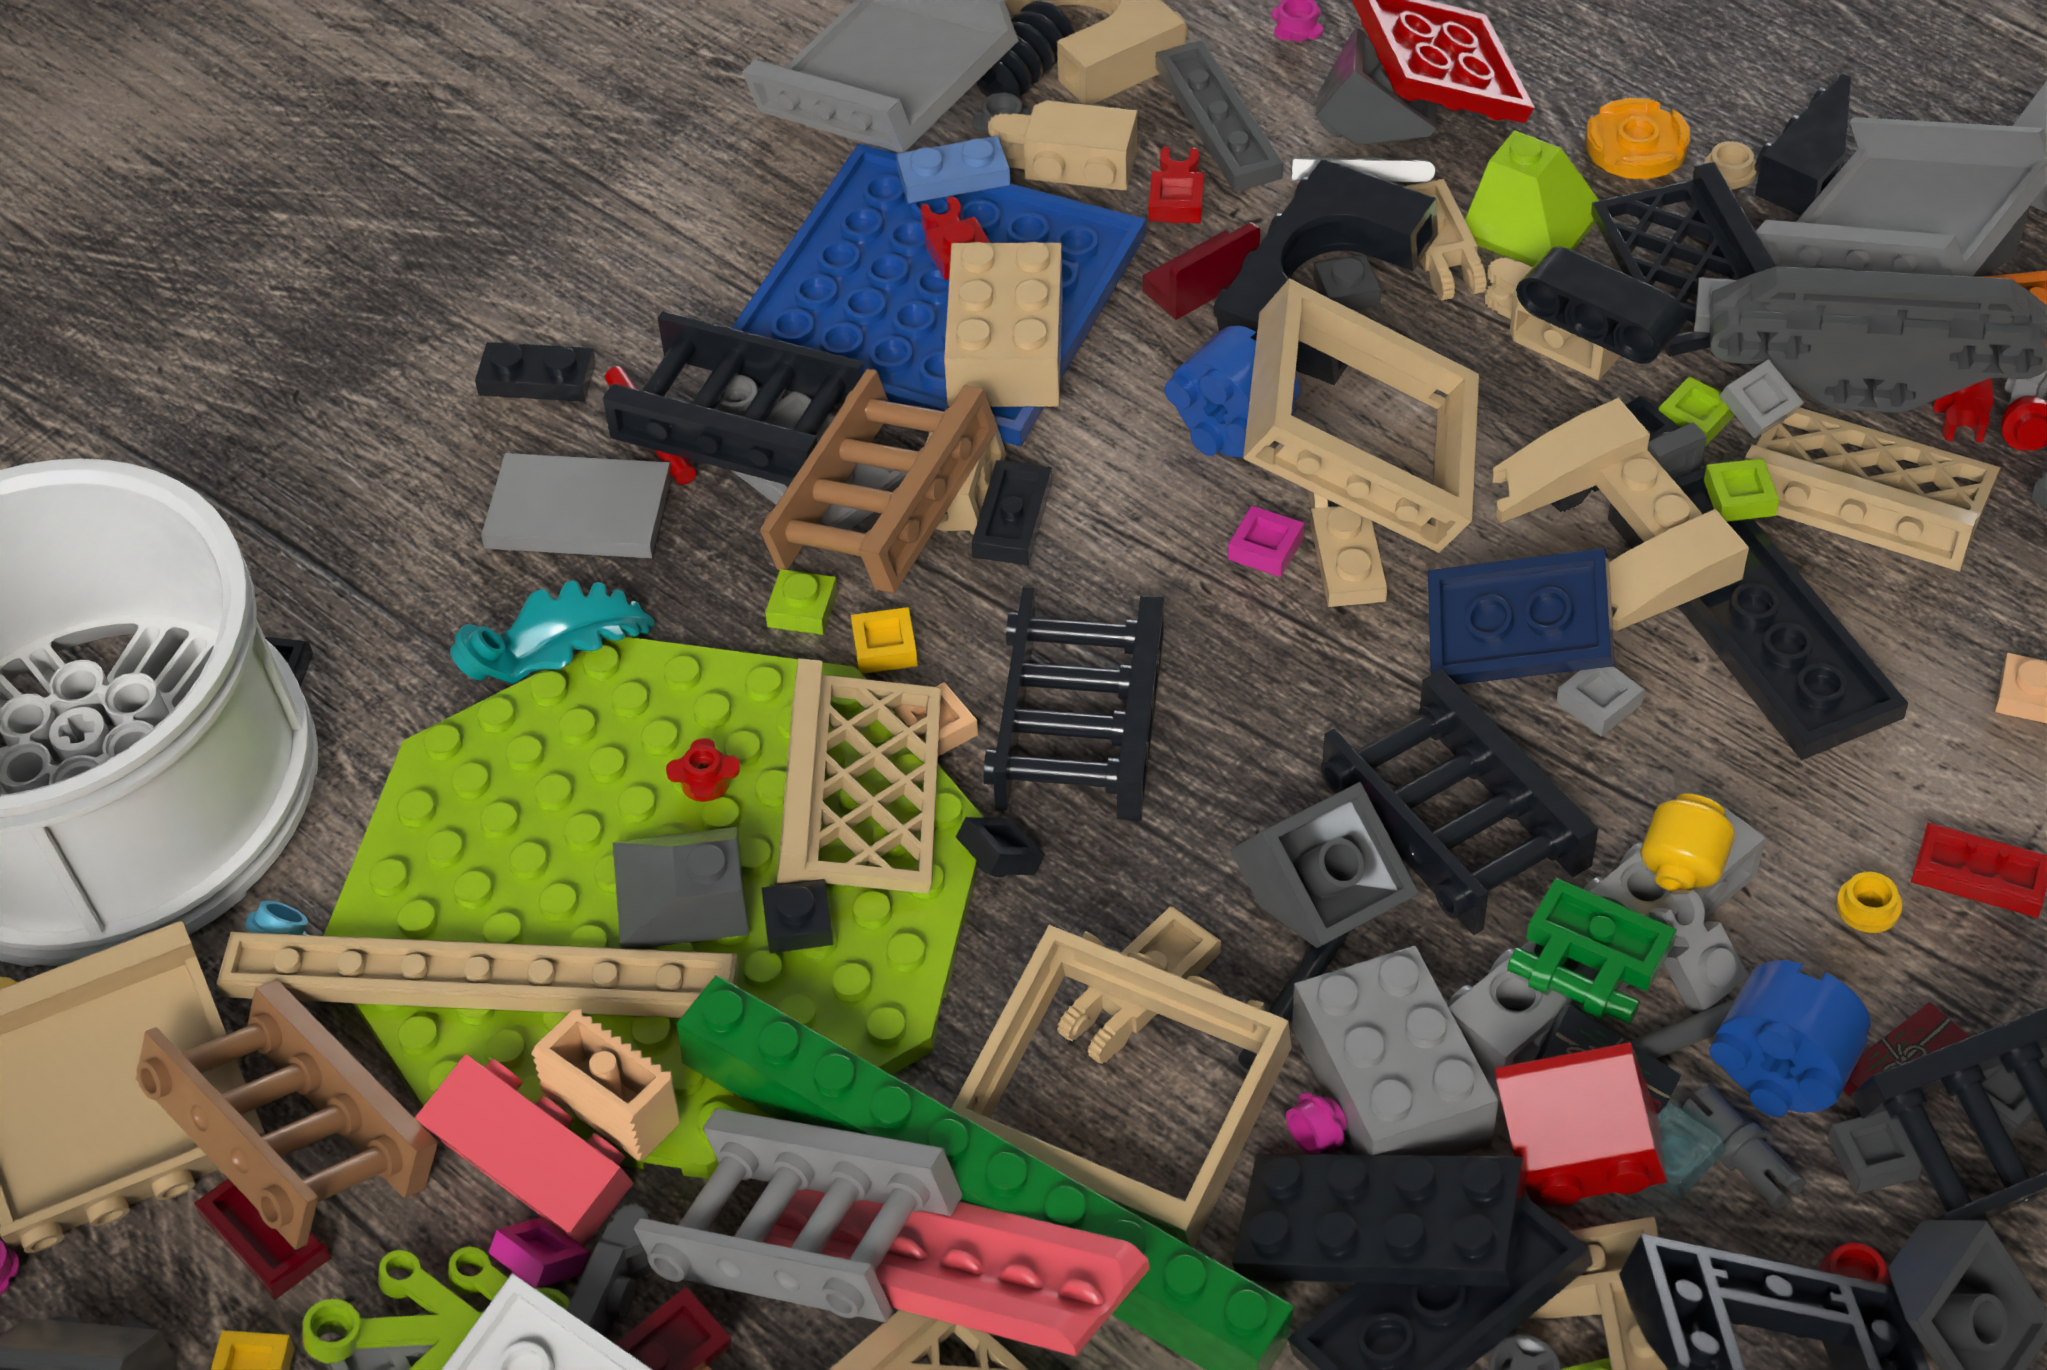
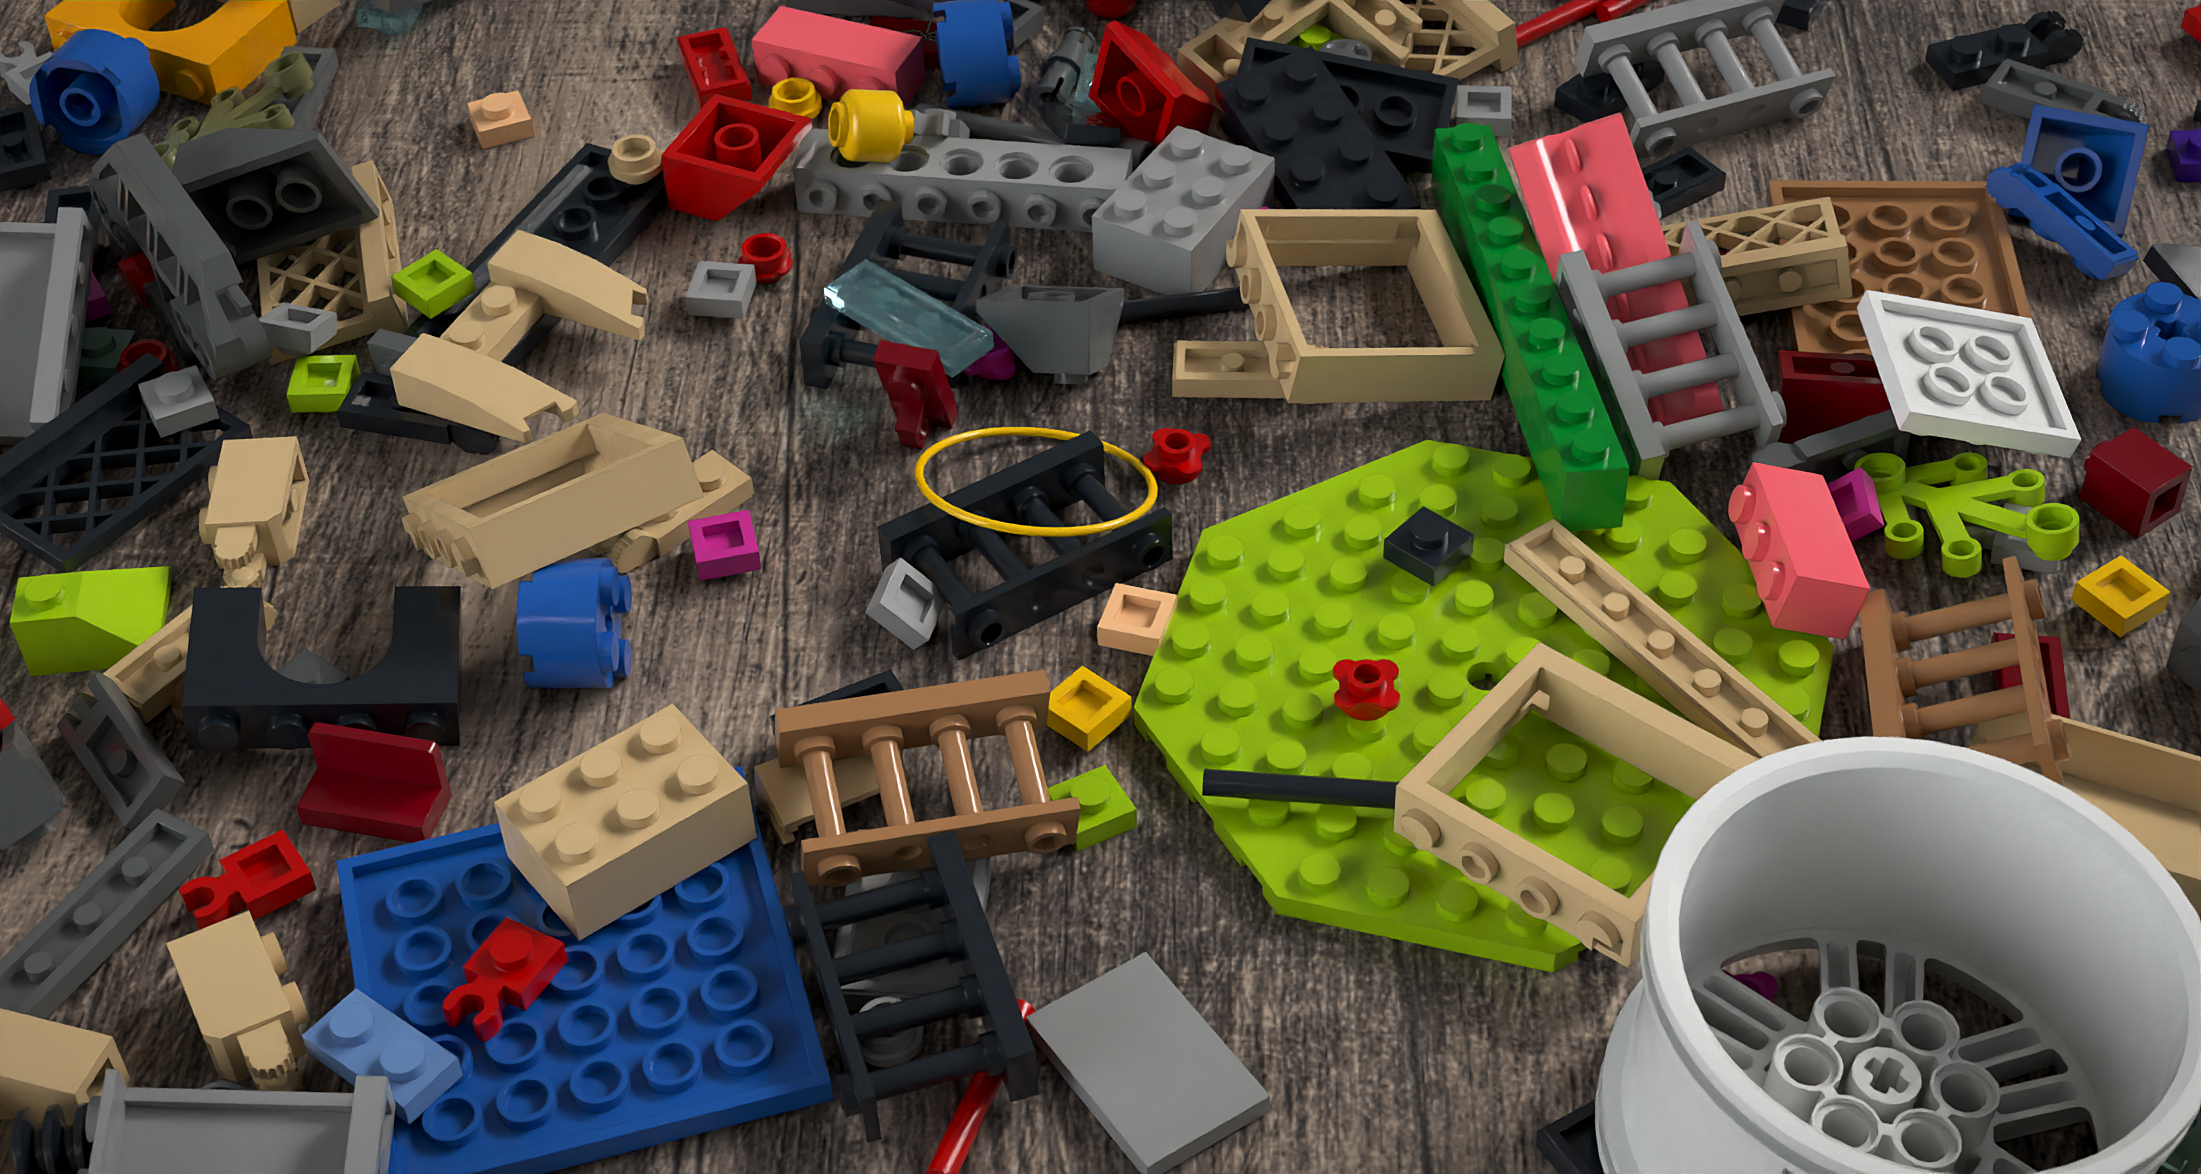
camera: 130 degrees left, 5 degrees down
(474, 876) = (1514, 867): none -> tan window
(548, 633) = (1337, 924): teal plant -> none
(607, 1084) = (1708, 505): light nougat brick -> none
(660, 683) = (1299, 788): none -> black piece
(680, 888) = (1480, 611): dark grey slope -> none
(806, 786) = (1288, 614): tan fence -> none
(999, 846) = (1222, 499): black plate -> none
(1089, 595) = (906, 604): none -> light grey plate
(1093, 834) = (1031, 530): none -> yellow piece
(1093, 881) = (1176, 455): none -> red plate
(1305, 705) = (916, 390): none -> dark red hinge
(1393, 740) = (908, 316): none -> clear light blue tile
(1521, 617) = (694, 335): dark blue plate -> none
(1599, 935) = (994, 136): green plate -> none
(1601, 305) = (267, 431): black beam -> none
(1623, 750) = (768, 255): none -> red plate
(1773, 766) = (728, 155): none -> red slope
(1824, 700) = (635, 159): none -> tan plate
(1917, 953) = (837, 55): none -> coral brick
(1953, 418) = (270, 188): none -> dark grey slope

